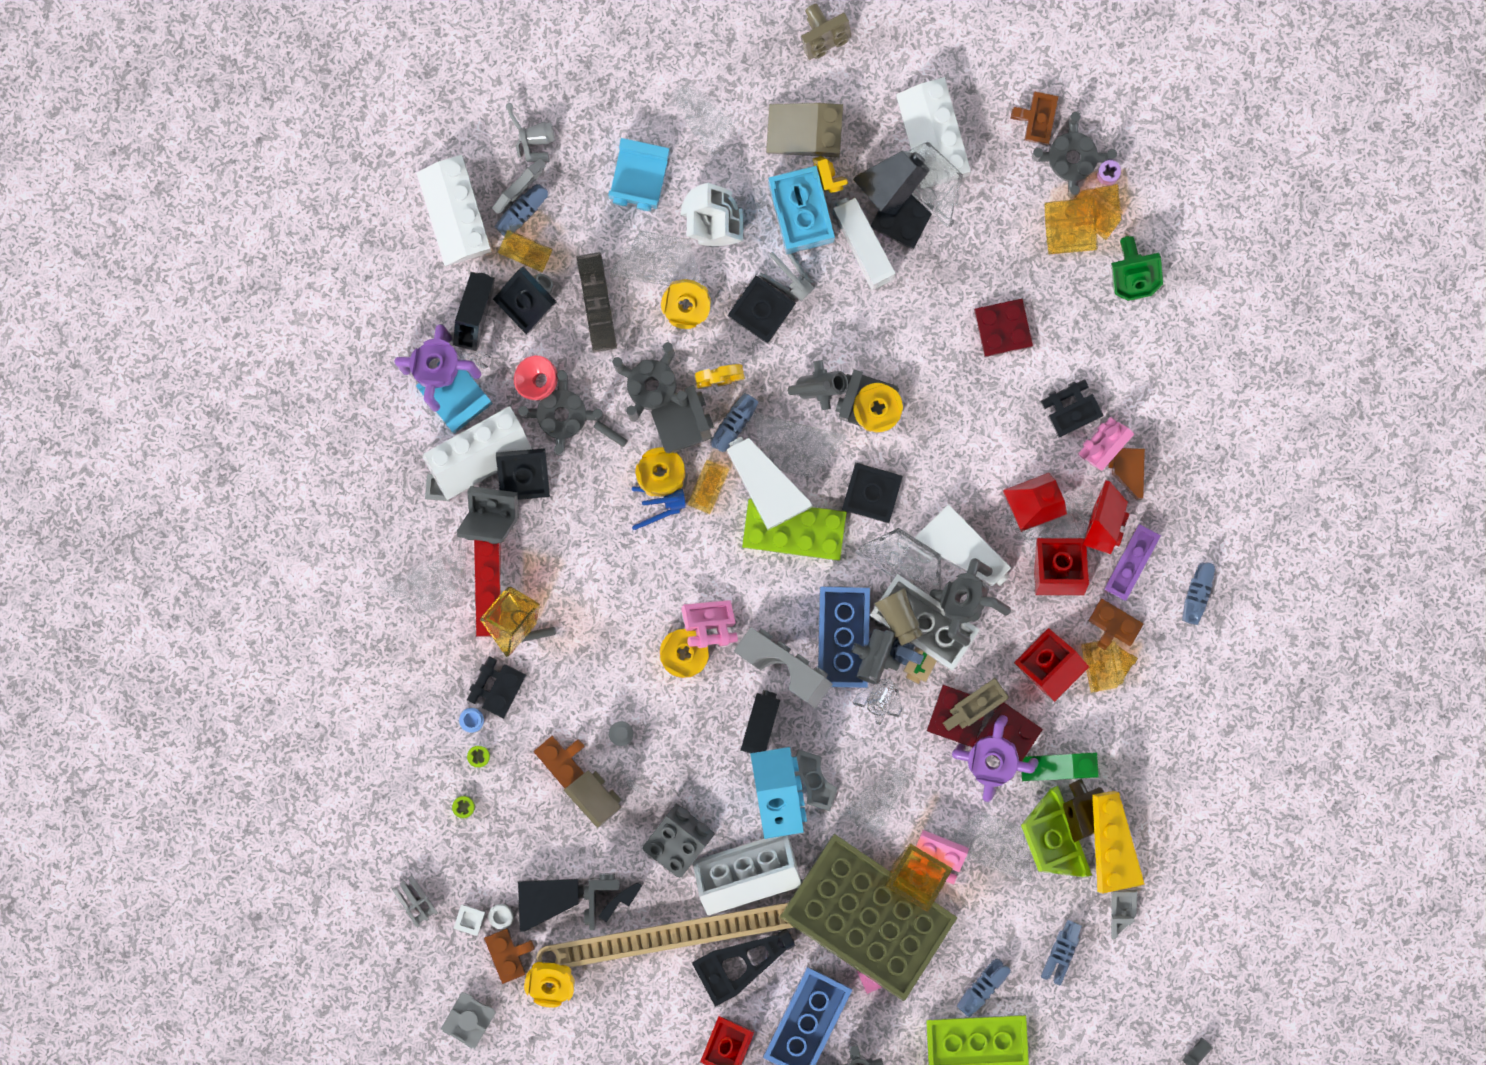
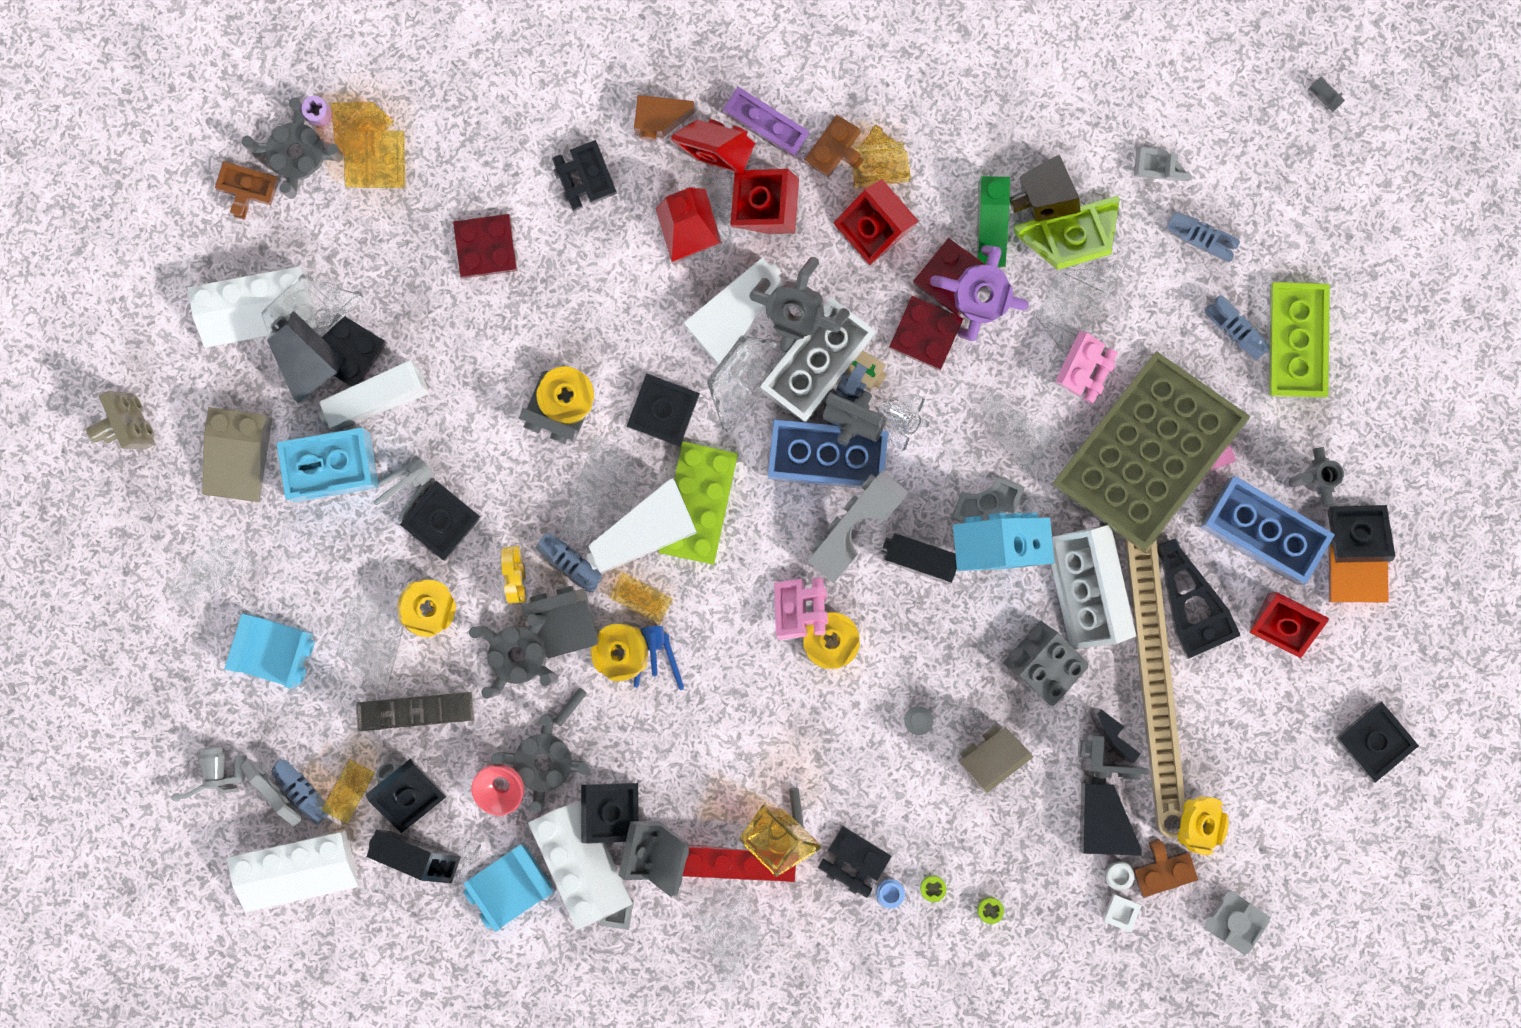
camera: 85 degrees left, 0 degrees up
(415, 902) = (1096, 975): light grey arm -> none
(443, 374) = (482, 896): medium lavender plate -> none
(560, 761) = (945, 793): dark orange plate -> none
(712, 216) = (326, 568): white brick -> none
(820, 385) = (534, 458): dark grey pin -> none
(826, 172) = (285, 431): yellow bracket -> none
(900, 616) = (810, 385): dark tan plant -> none
(917, 877) = (1109, 391): clear yellow slope -> none
(976, 705) = (917, 308): dark tan hinge -> none
(1105, 443) = (628, 138): bright pink plate -> none
(1114, 848) = (1090, 165): yellow wing -> none
(1136, 274) = (437, 88): green piece -> none
(1198, 593) = (806, 49): sand blue hinge -> none

